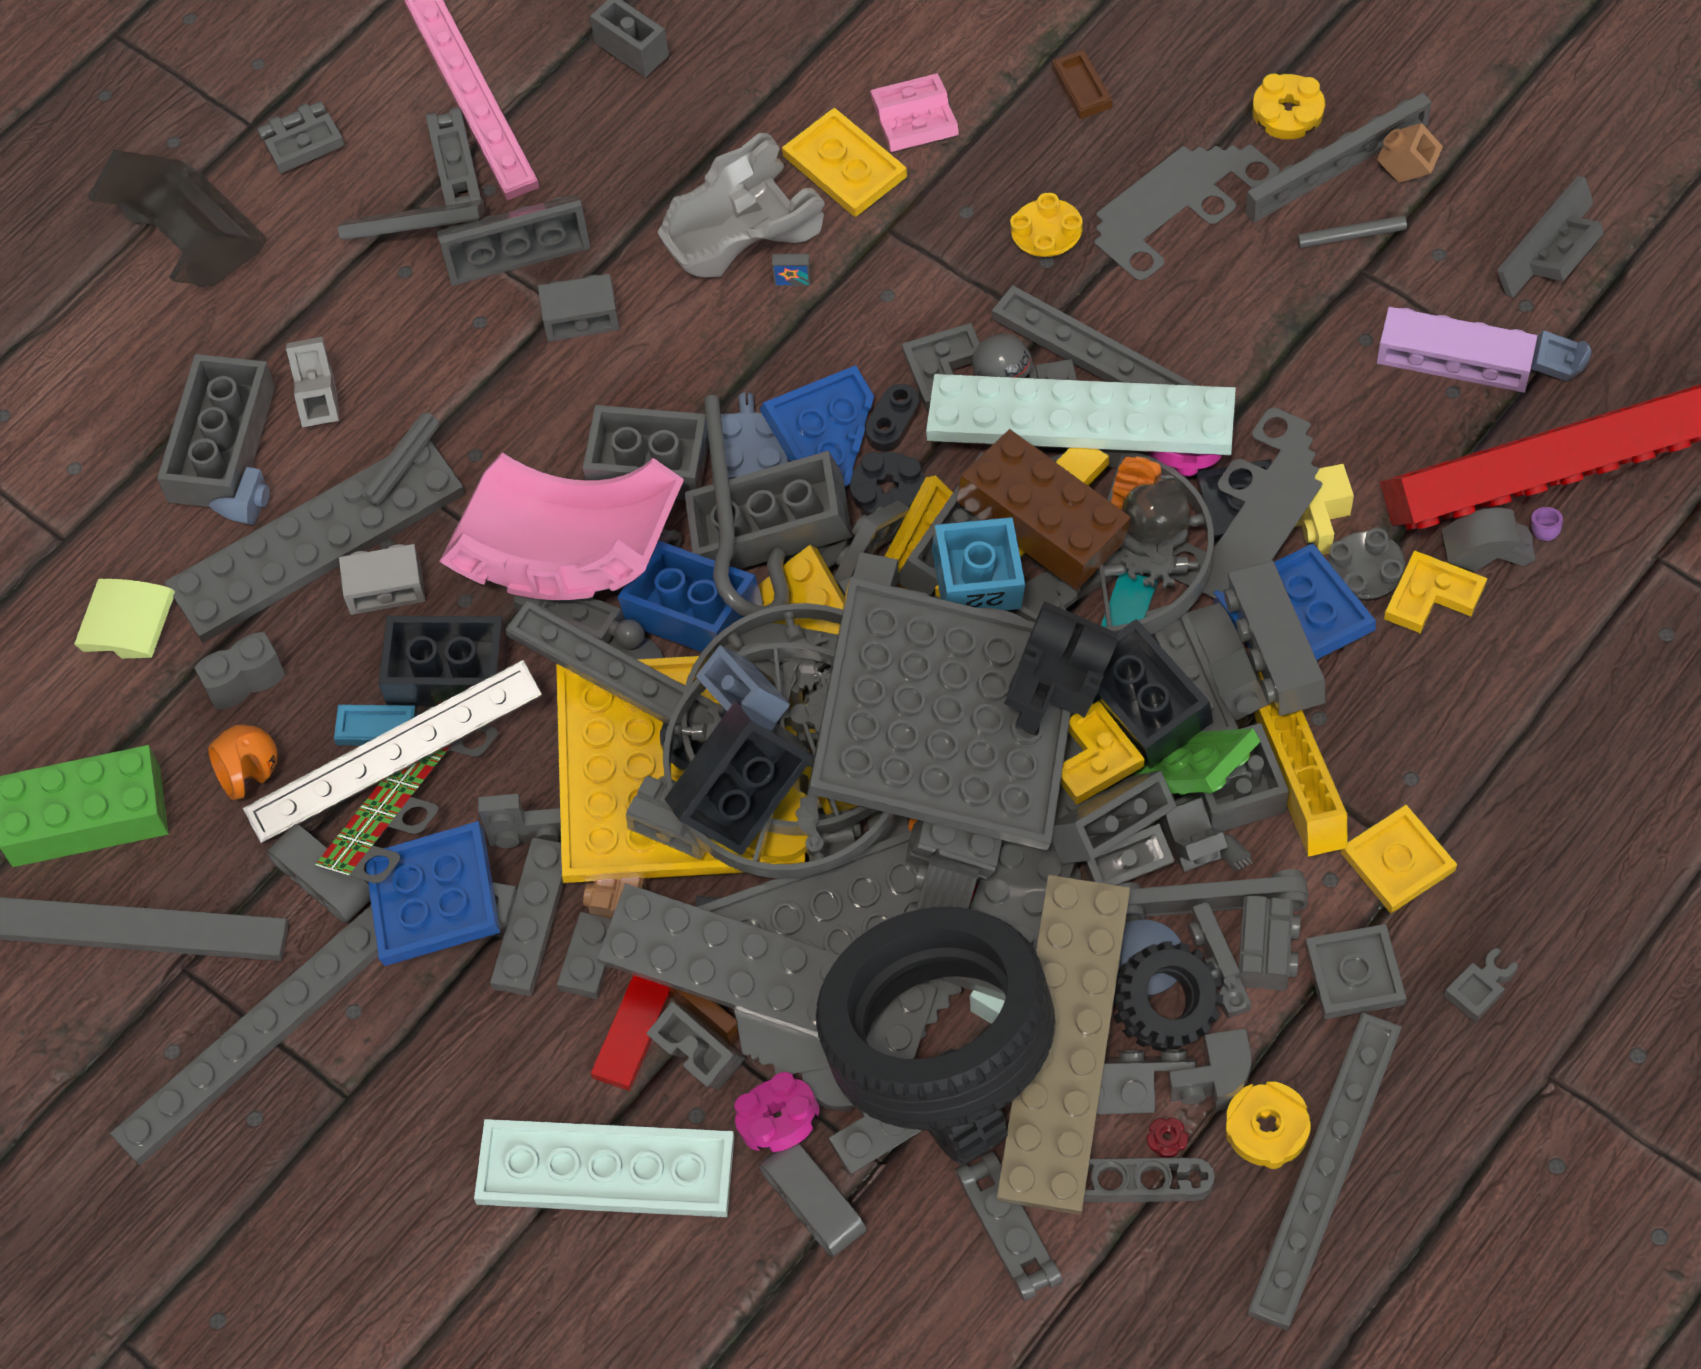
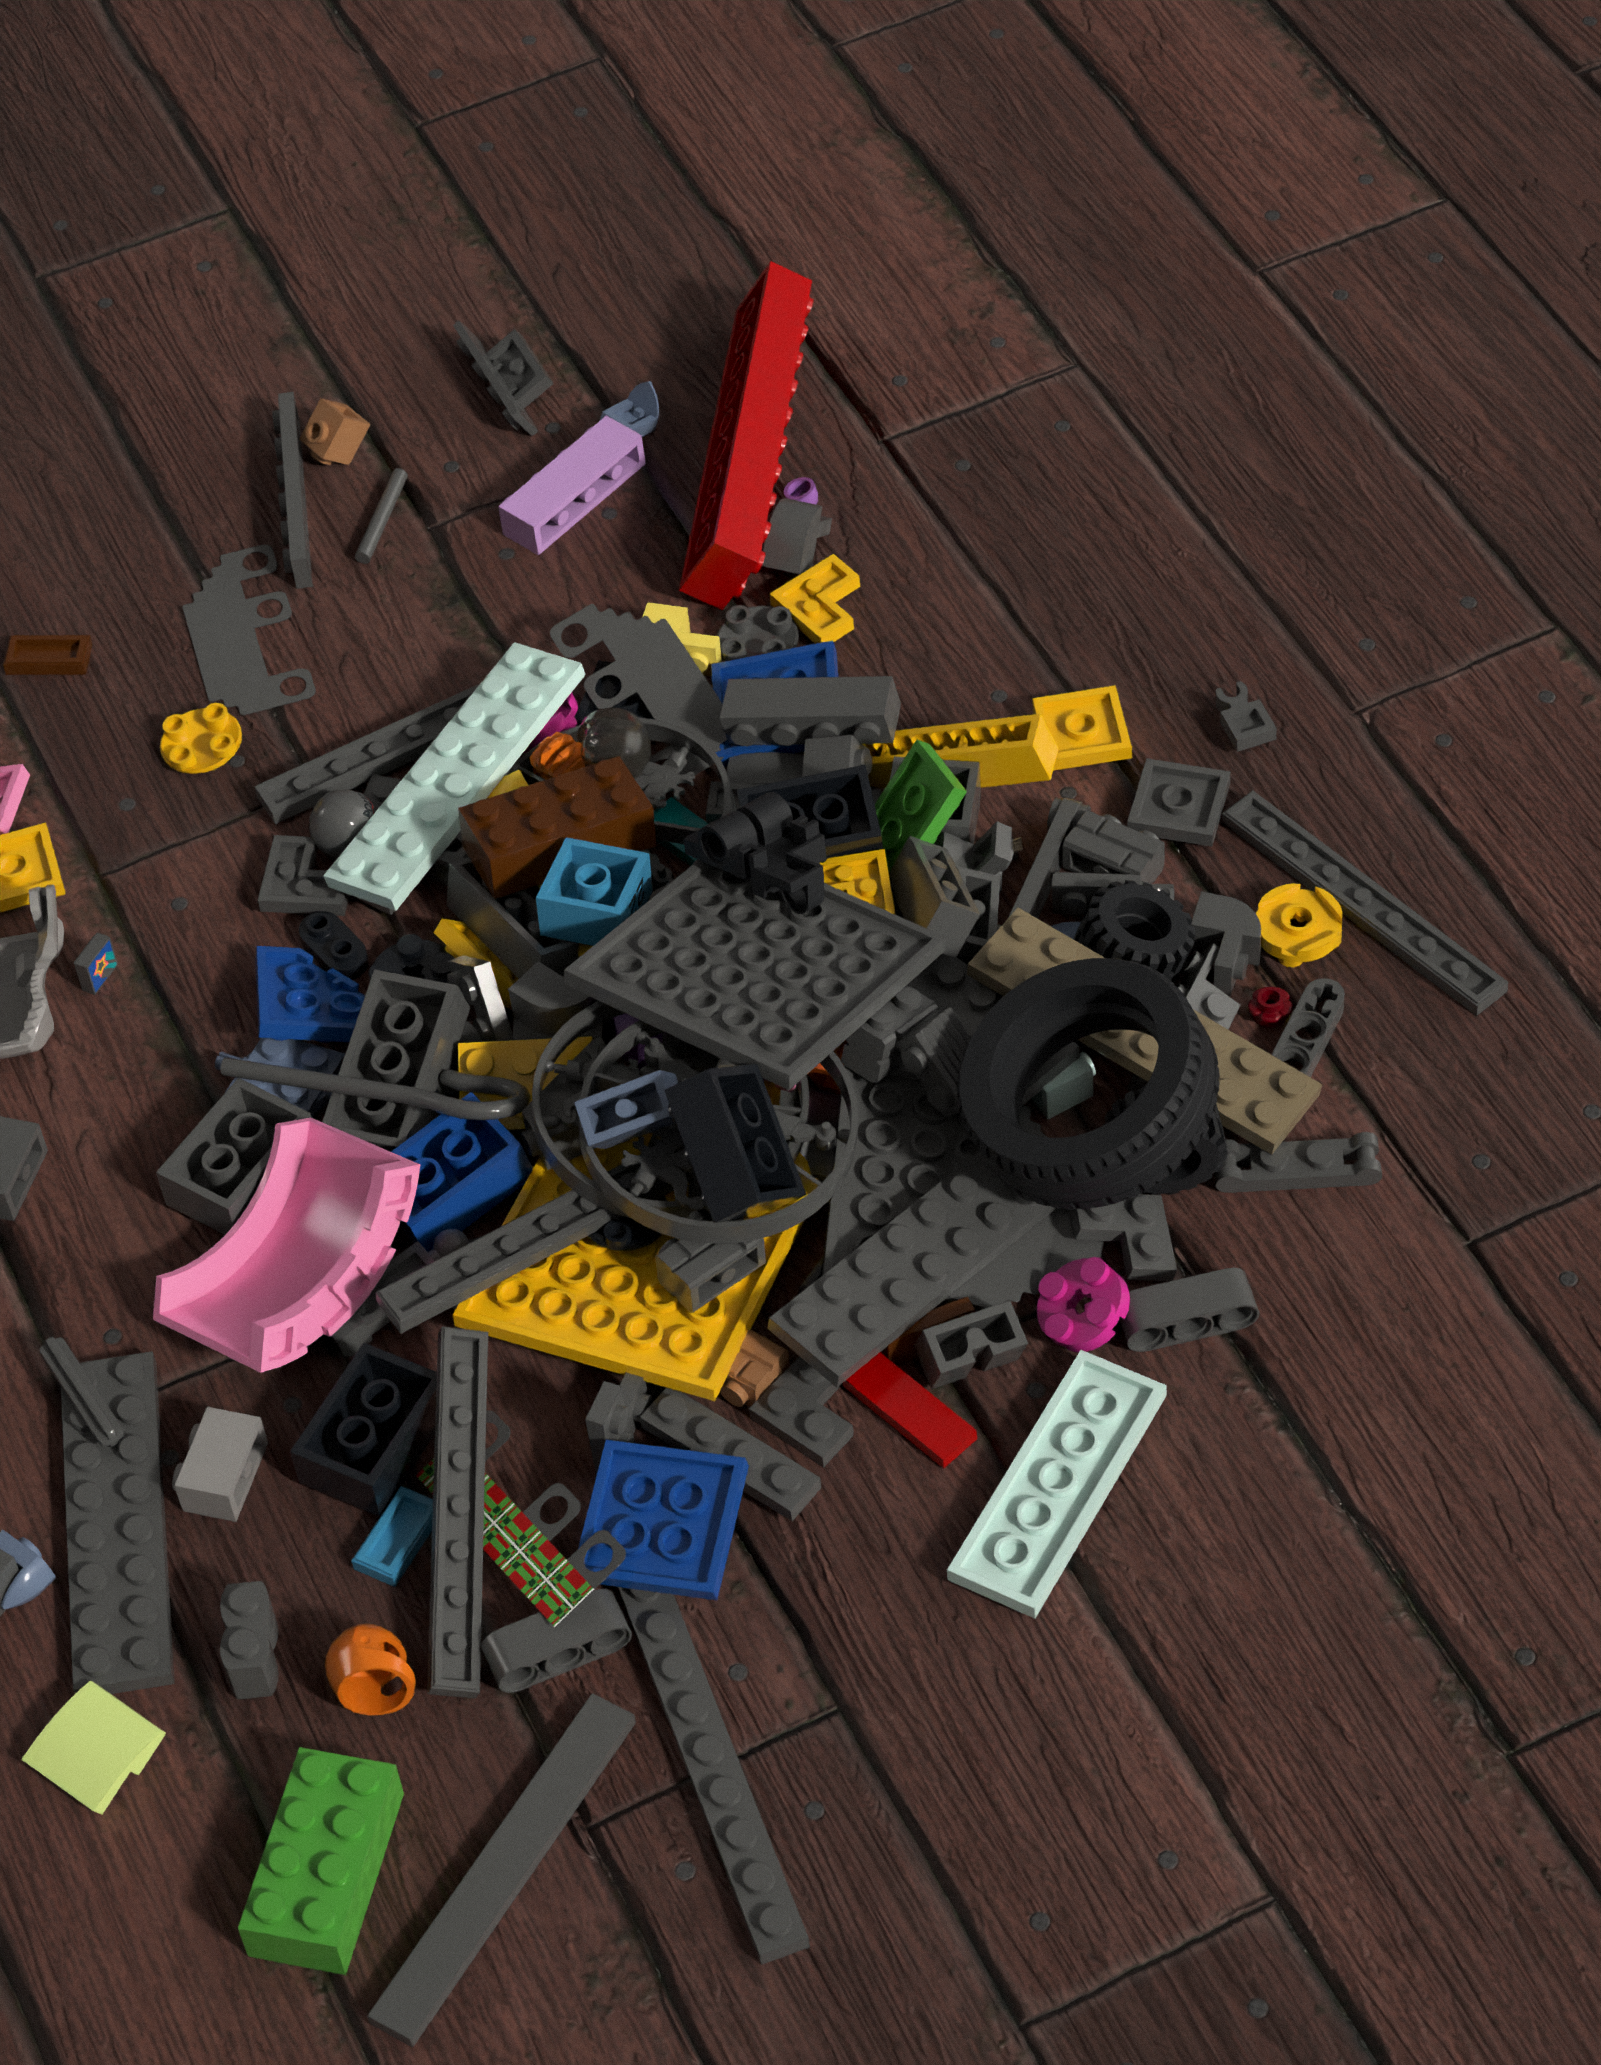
camera: 65 degrees left, 10 degrees down
(1293, 89) = (196, 491): yellow plate -> none

